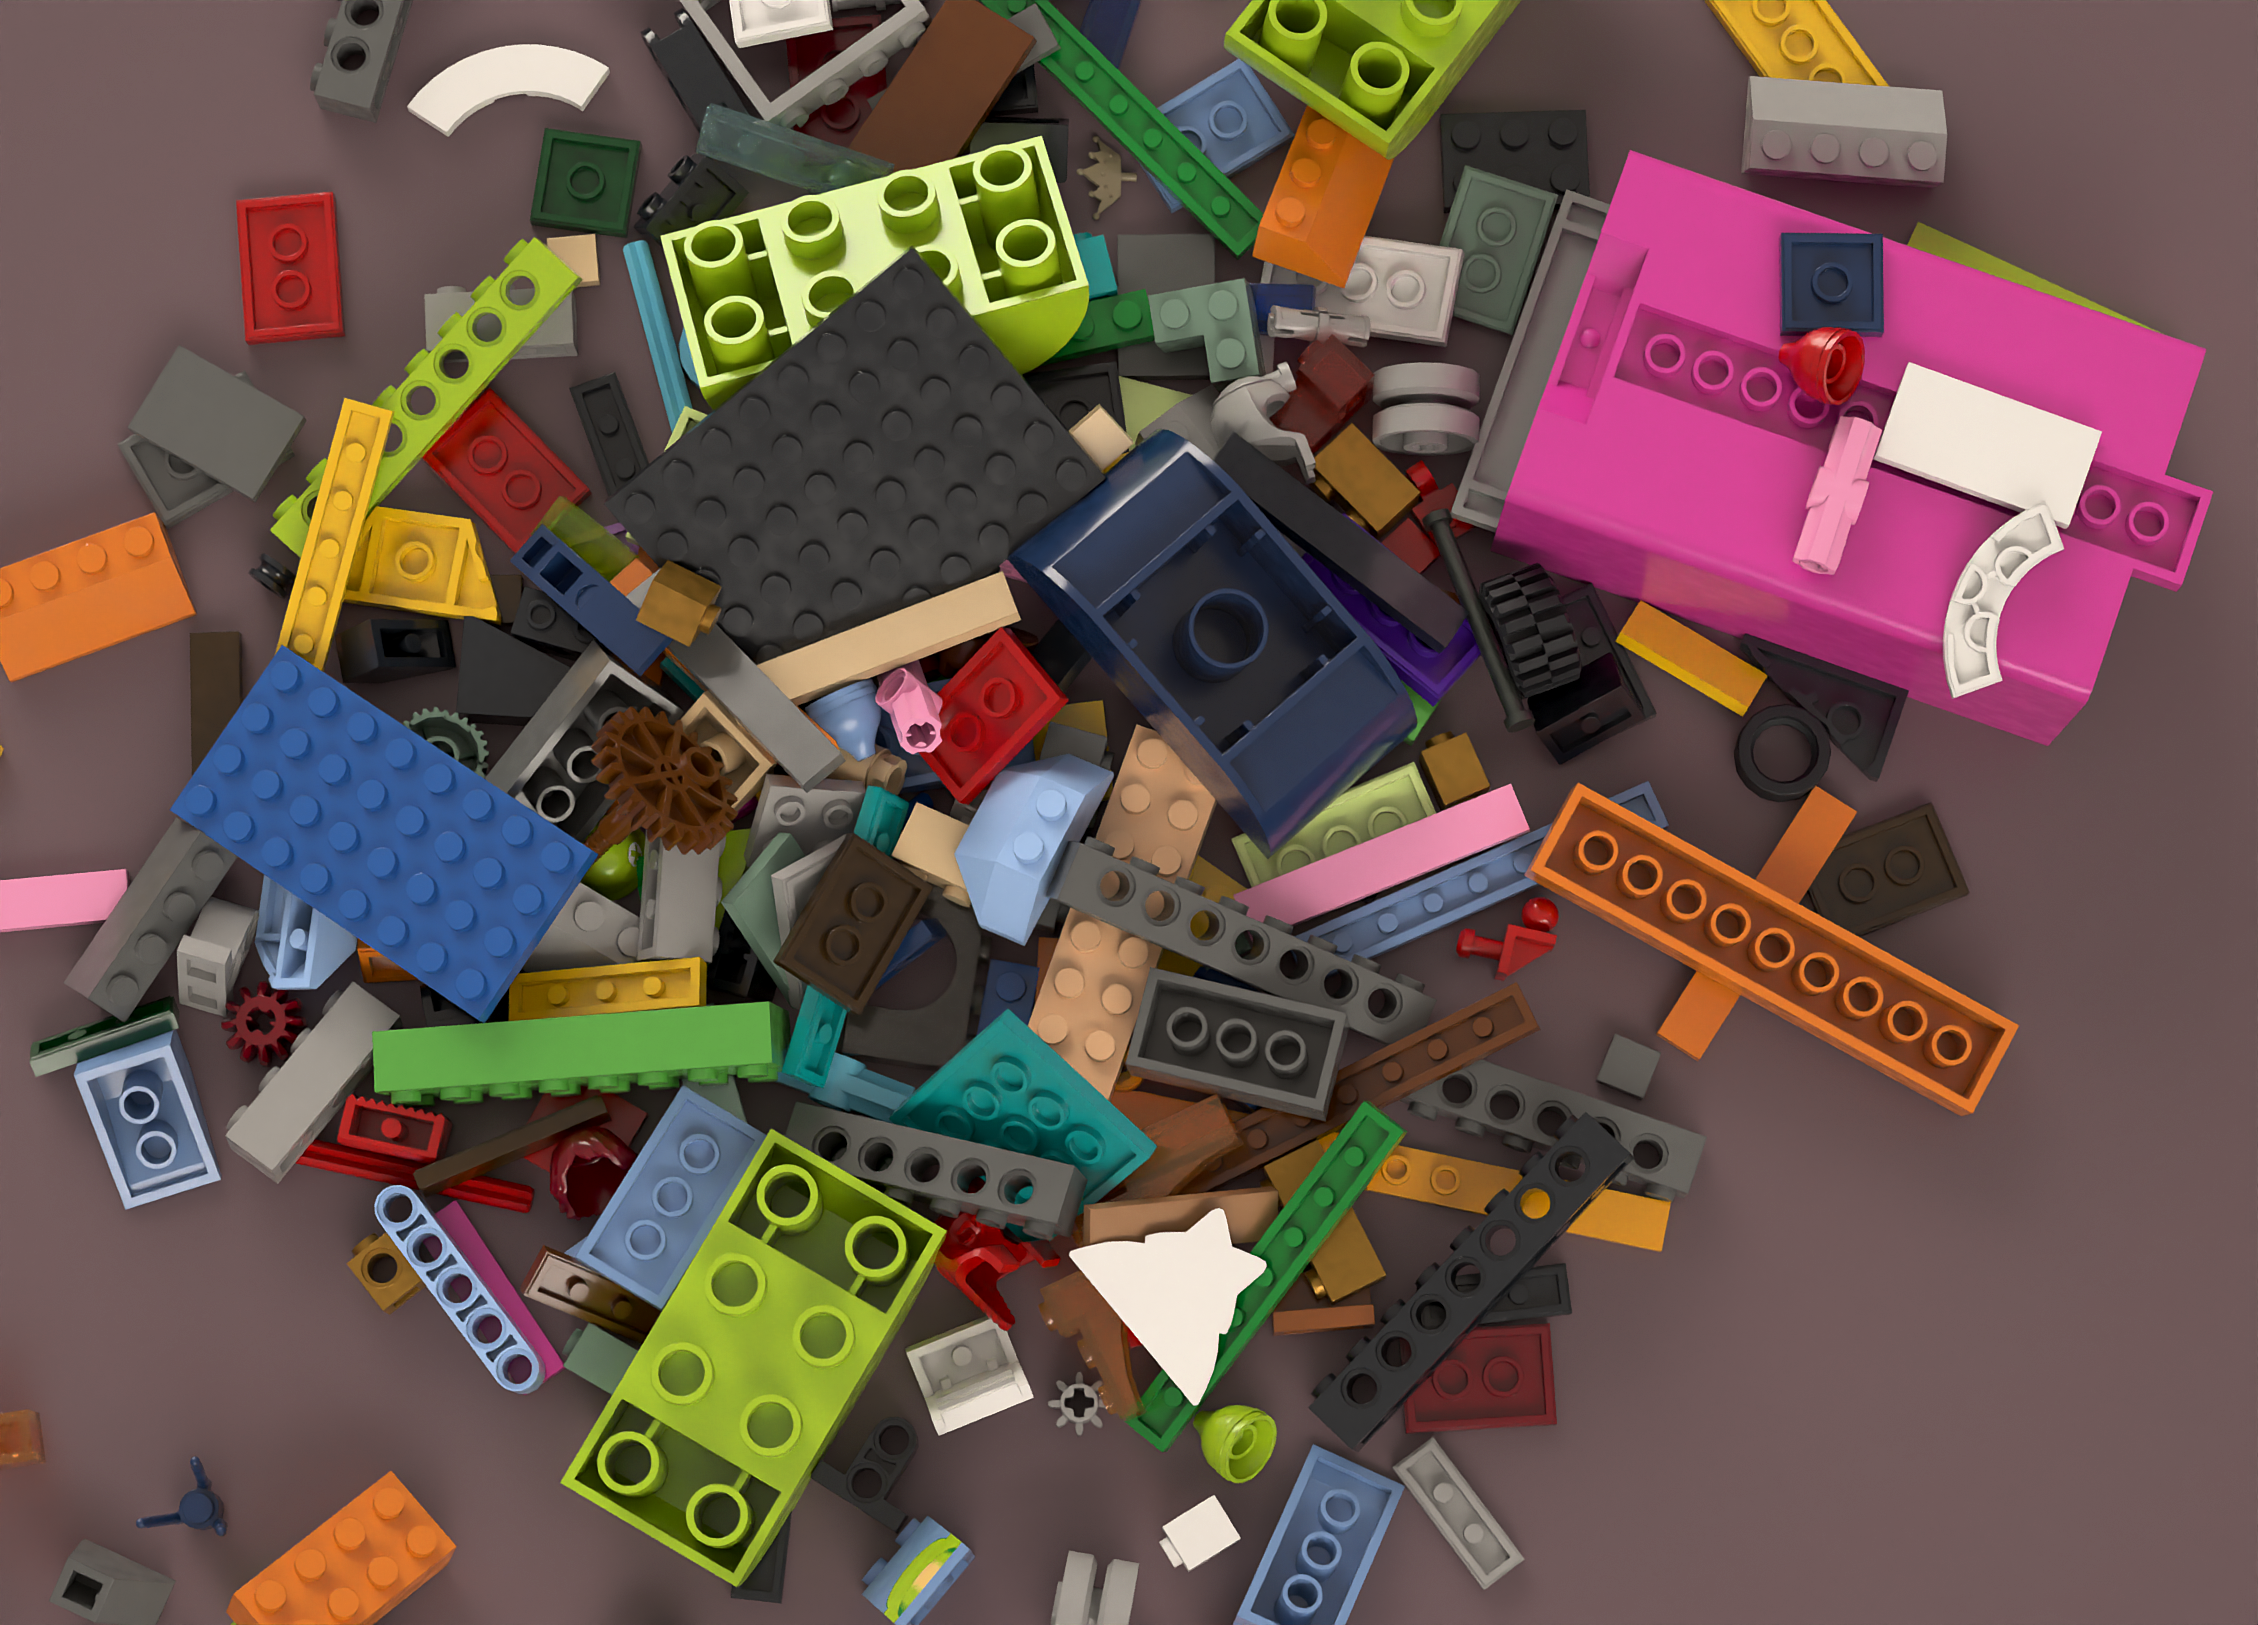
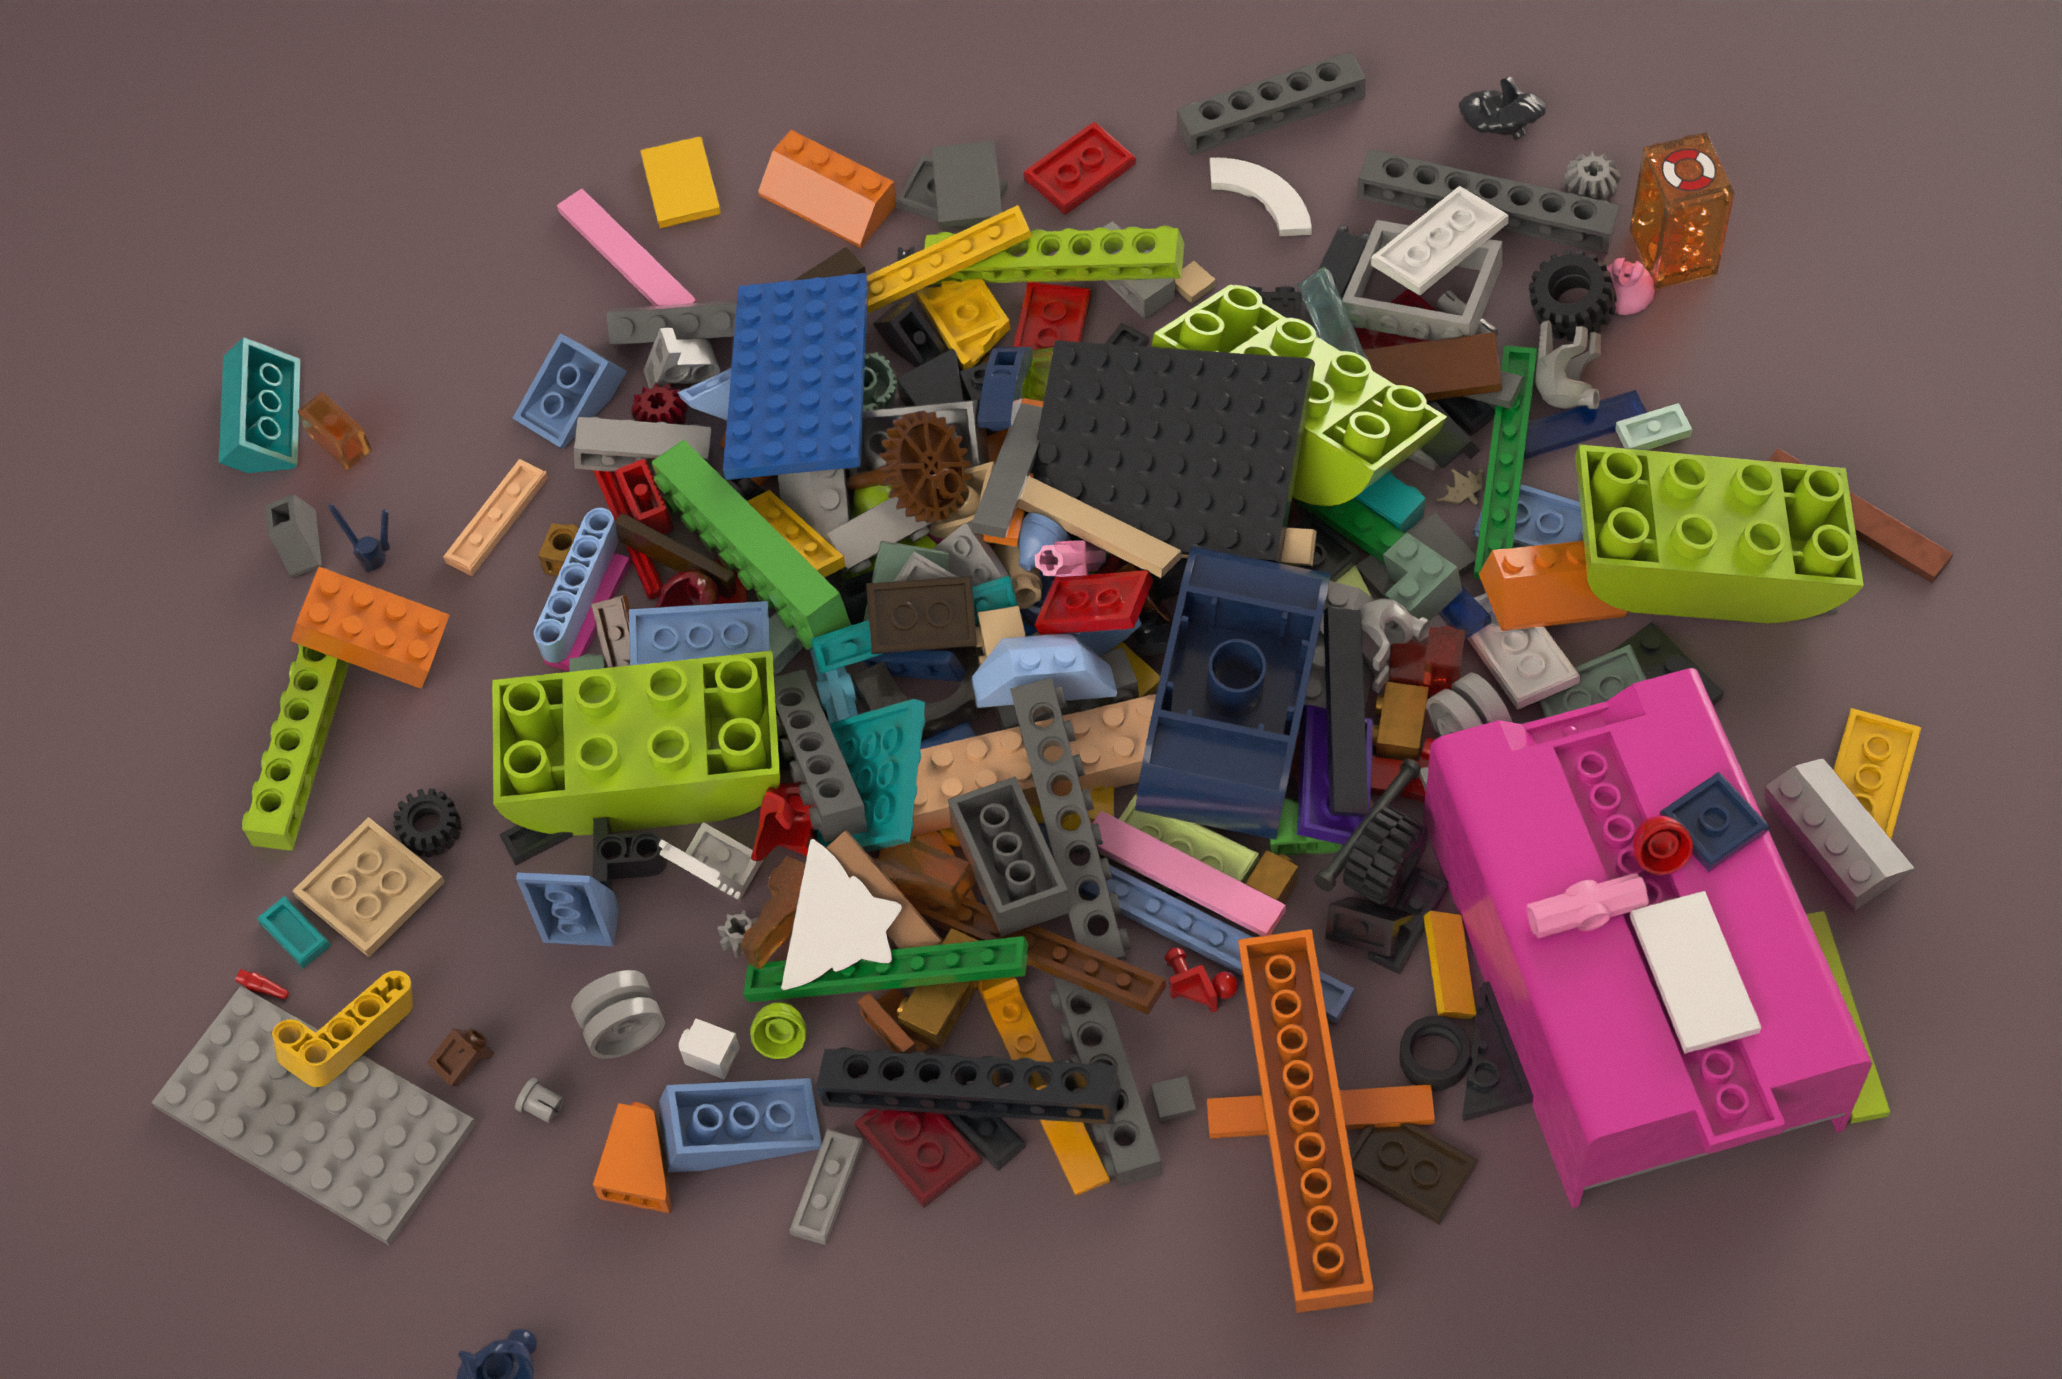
camera: 60 degrees right, 20 degrees down
(103, 1036) = (598, 345): dark green tile -> none
(263, 1322) = (495, 517): none -> light nougat tile
(585, 183) = (1241, 258): dark green tile -> none
(680, 604) = (1030, 411): pearl gold brick -> none
(1318, 325) = (1462, 620): light grey pin -> none
(1982, 592) = (1601, 1029): white tile -> none

